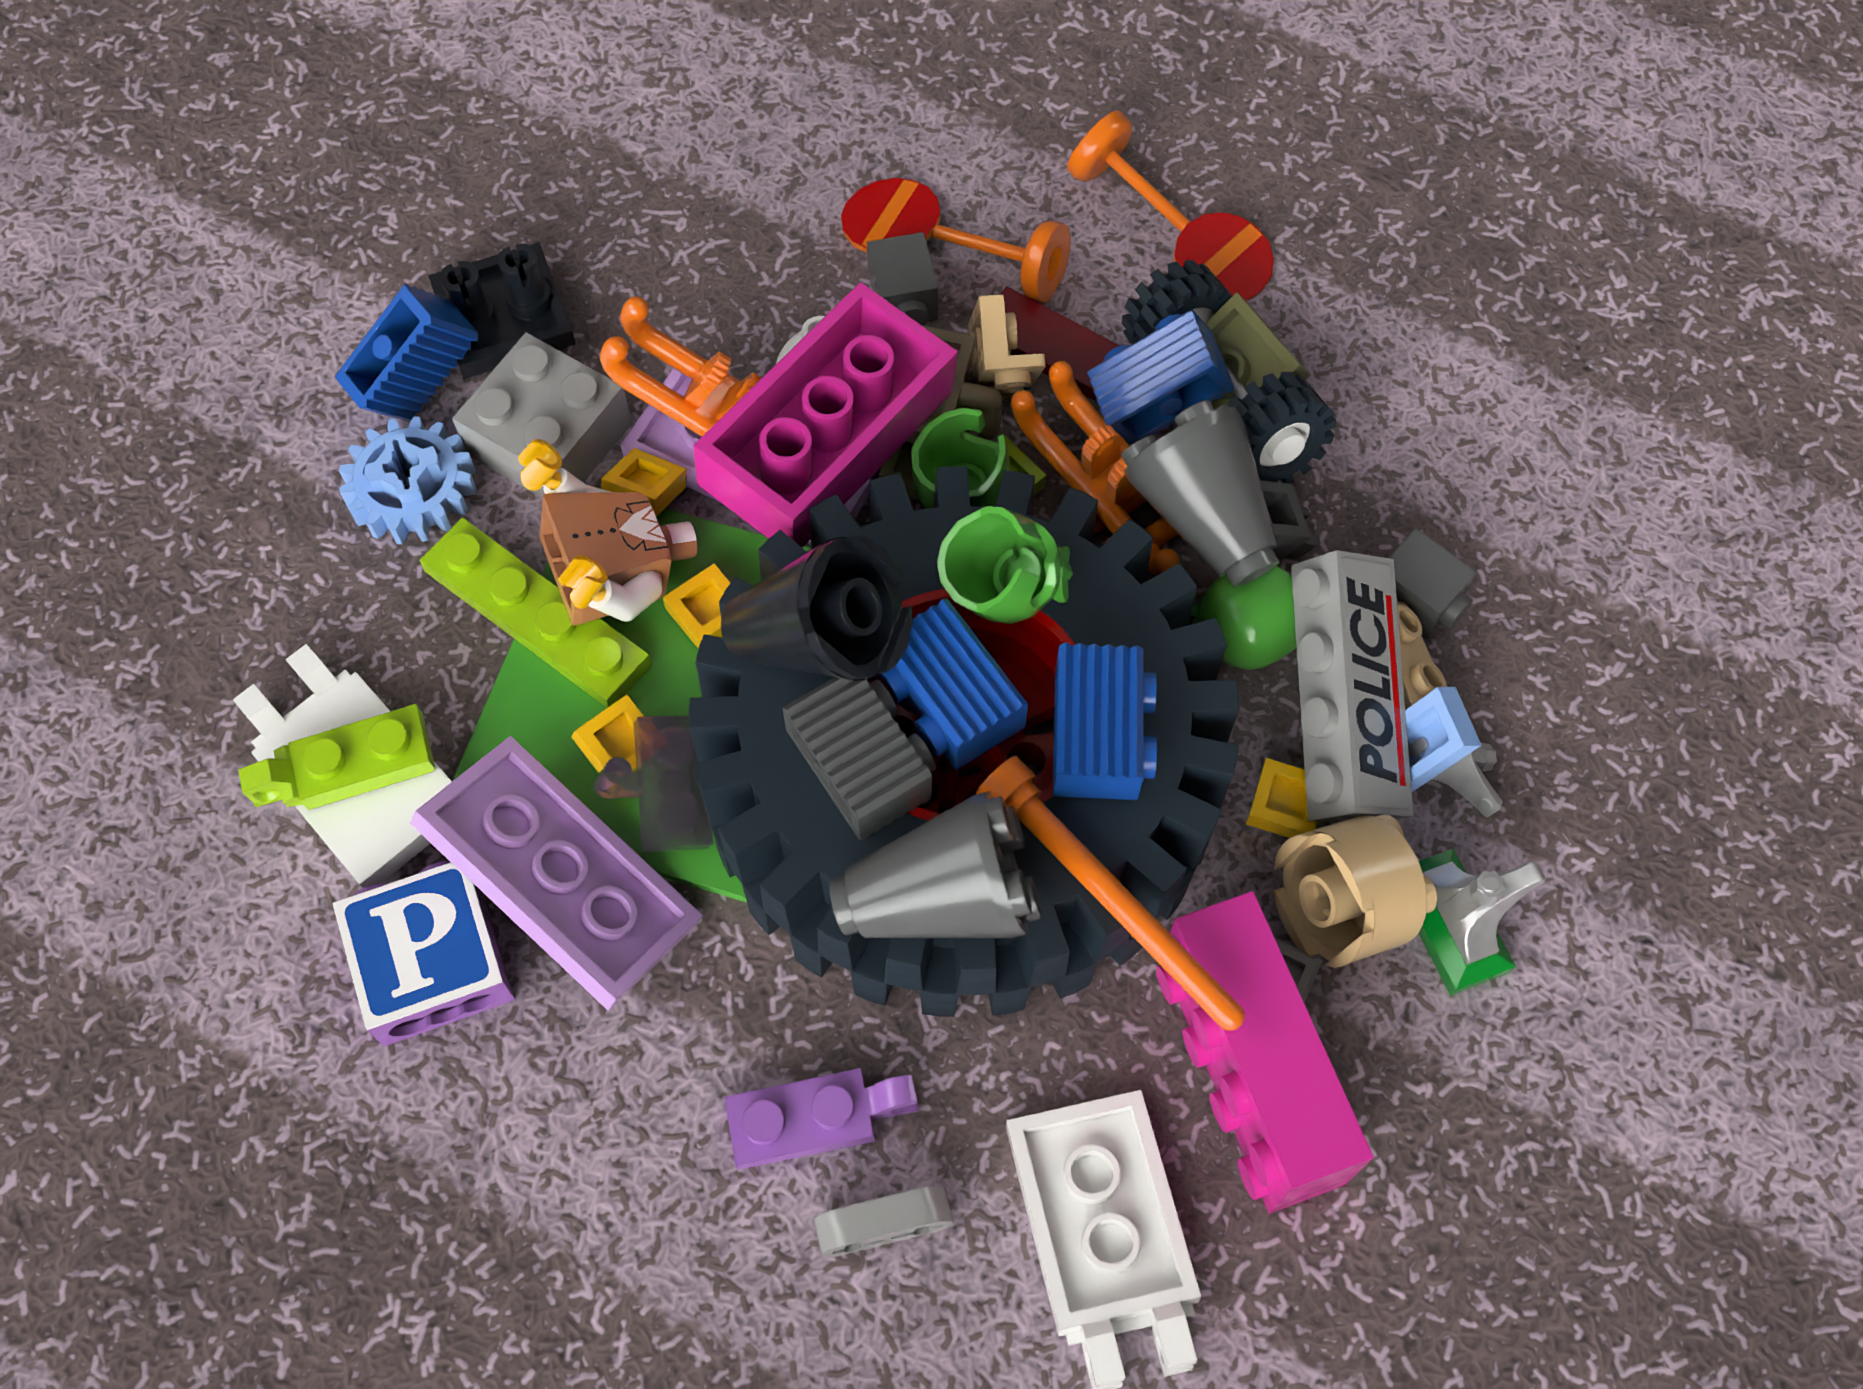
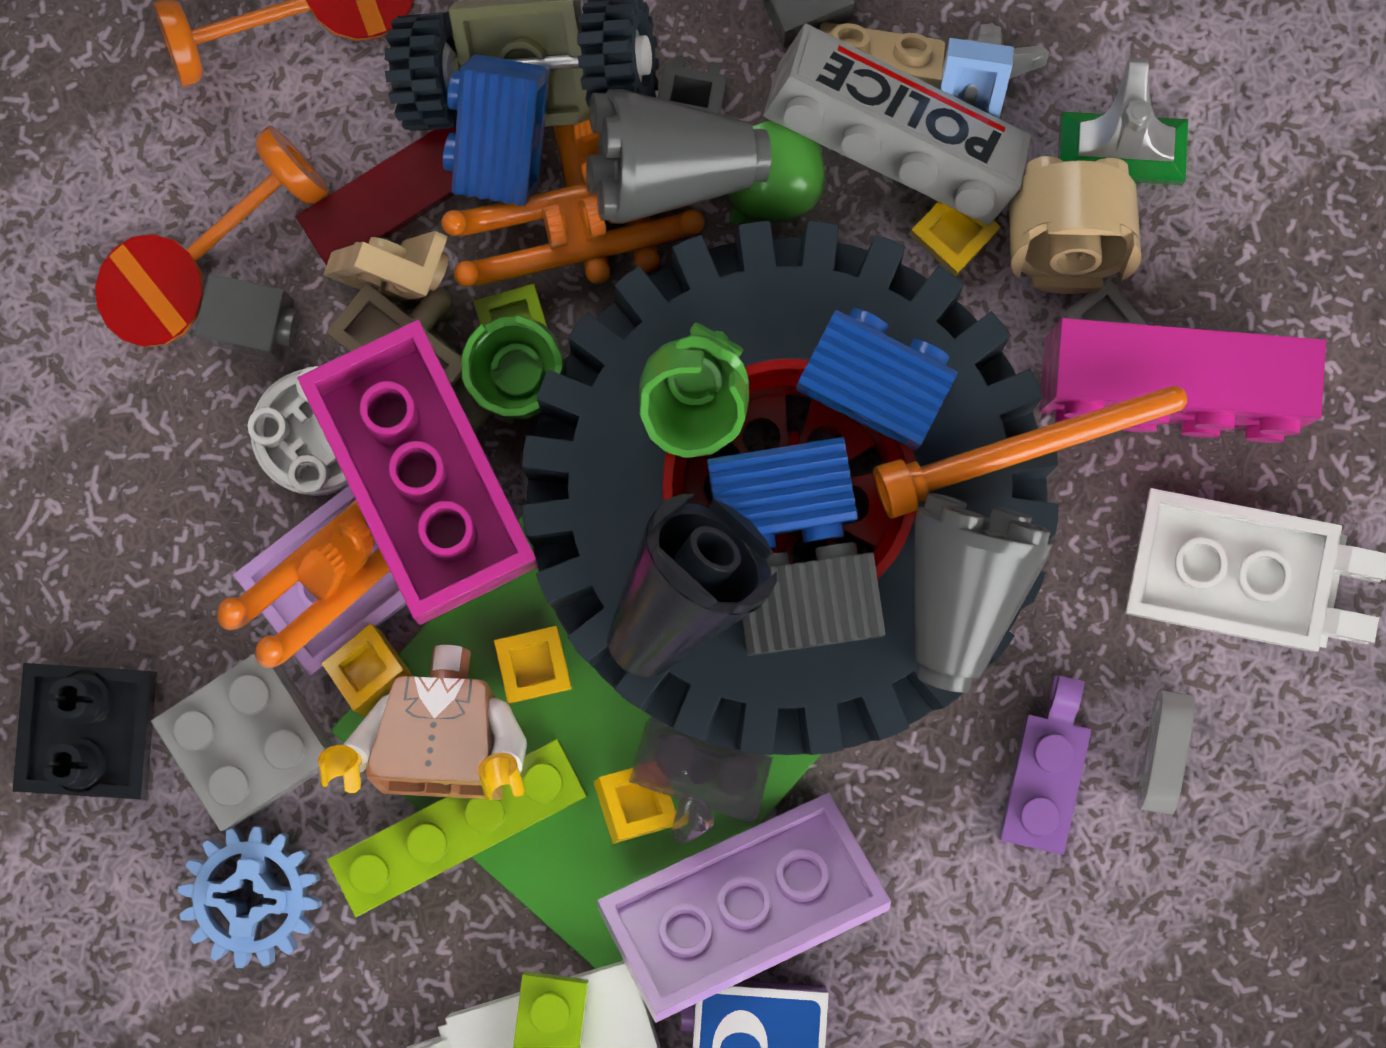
camera: 60 degrees left, 20 degrees up
(406, 354) = (117, 848): blue brick -> none

